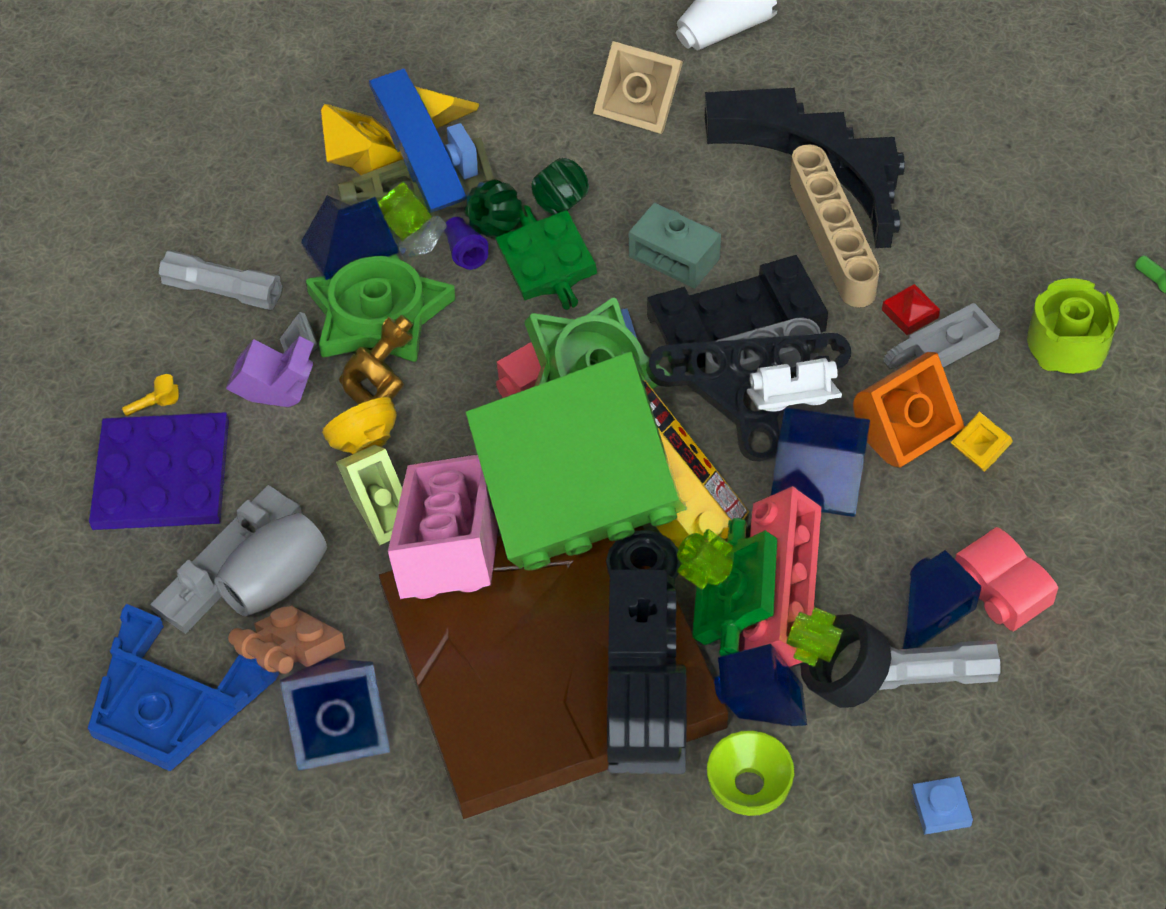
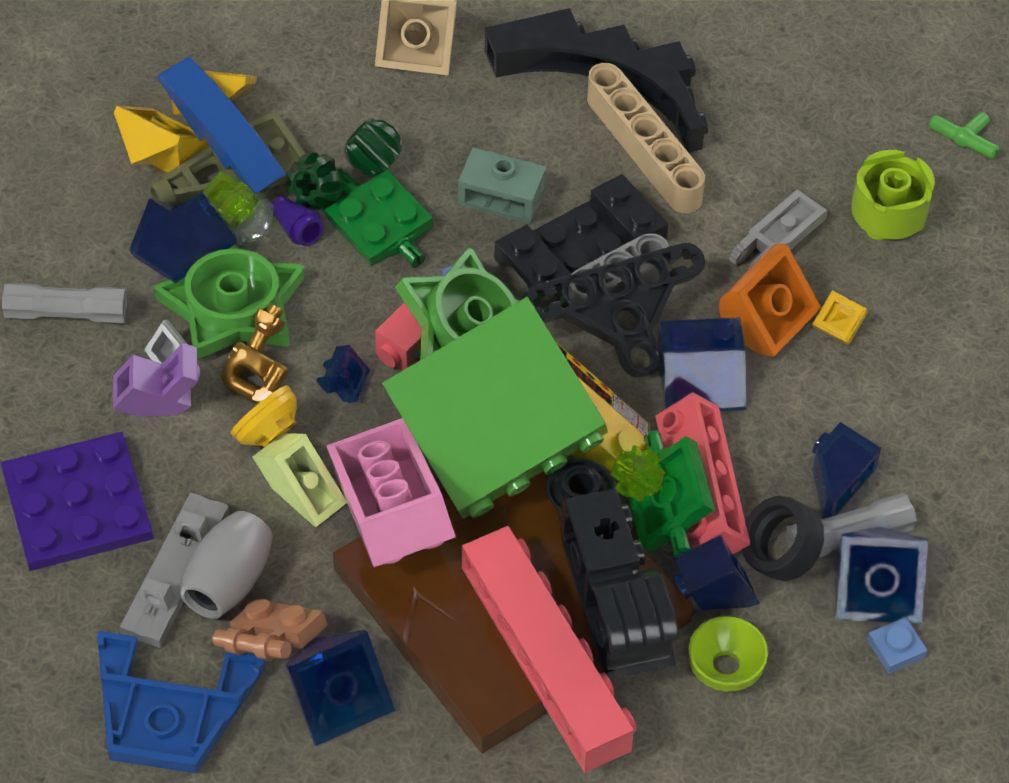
camera: 20 degrees left, 0 degrees up
(164, 394) = (50, 426): yellow hand -> none
(456, 397) = (344, 374): none -> clear blue tile
(462, 151) = (269, 128): medium blue plate -> none
(555, 729) = (548, 649): none -> coral brick
(775, 389) = (649, 305): white hinge -> none
(814, 636) = (754, 521): clear neon green gear -> none
(910, 309) = (739, 206): red tile -> none
(943, 725) = (880, 576): none -> clear blue slope
(1011, 582) = (906, 439): coral brick -> none

